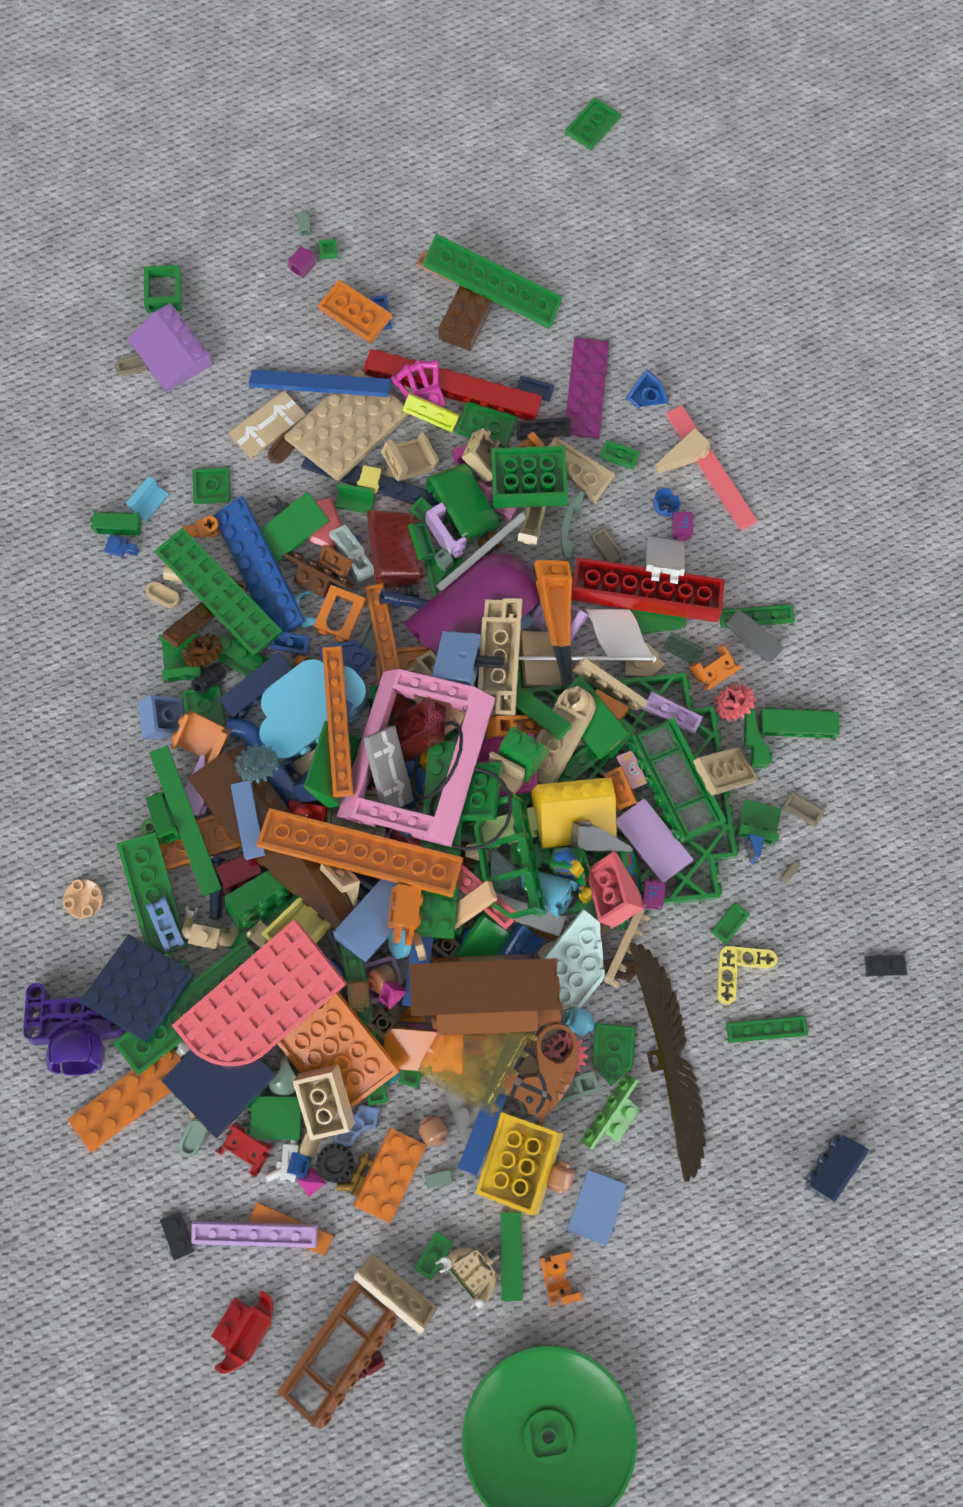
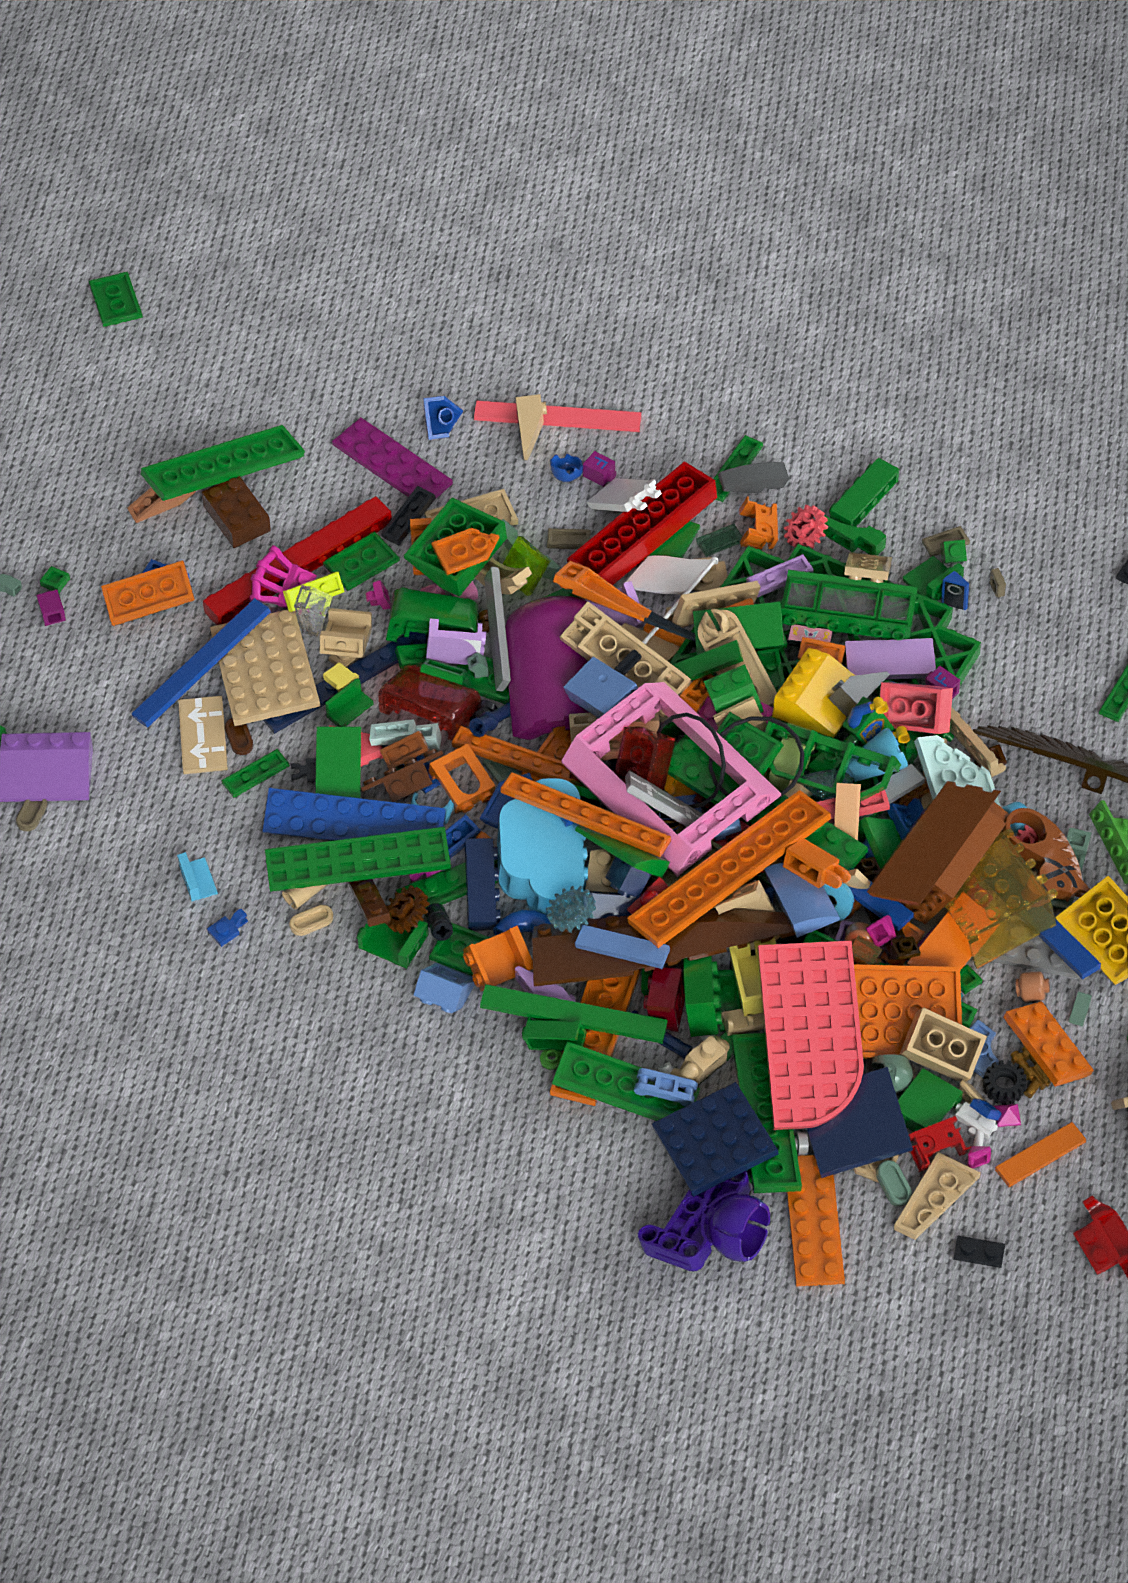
camera: 50 degrees left, 20 degrees down
(83, 898) = (580, 1154): light nougat dish -> none
(116, 523) = (200, 915): green window -> none
(202, 527) = (273, 839): orange connector -> none
(210, 1172) = (936, 1192): none -> tan wing
(211, 485) = (227, 816): green tile -> none
(254, 1234) = (1024, 1183): lavender tile -> none
(256, 1183) = (979, 1156): none -> dark pink slope
(259, 478) = (255, 773): none -> green tile
(414, 420) = (311, 609): none -> clear slope
(478, 455) = (396, 574): tan piece -> none
(521, 484) = (464, 549): none -> orange tile
(540, 388) = (355, 499): dark blue tile -> none
(554, 533) = (526, 555): none -> clear neon green tile
(613, 1050) = (1062, 808): green tile -> none
(619, 454) = (485, 475): green plate -> none
(730, 923) = (1009, 656): green tile -> none
(738, 960) = (1050, 671): light yellow beam -> none
(792, 822) = (953, 552): none -> green brick

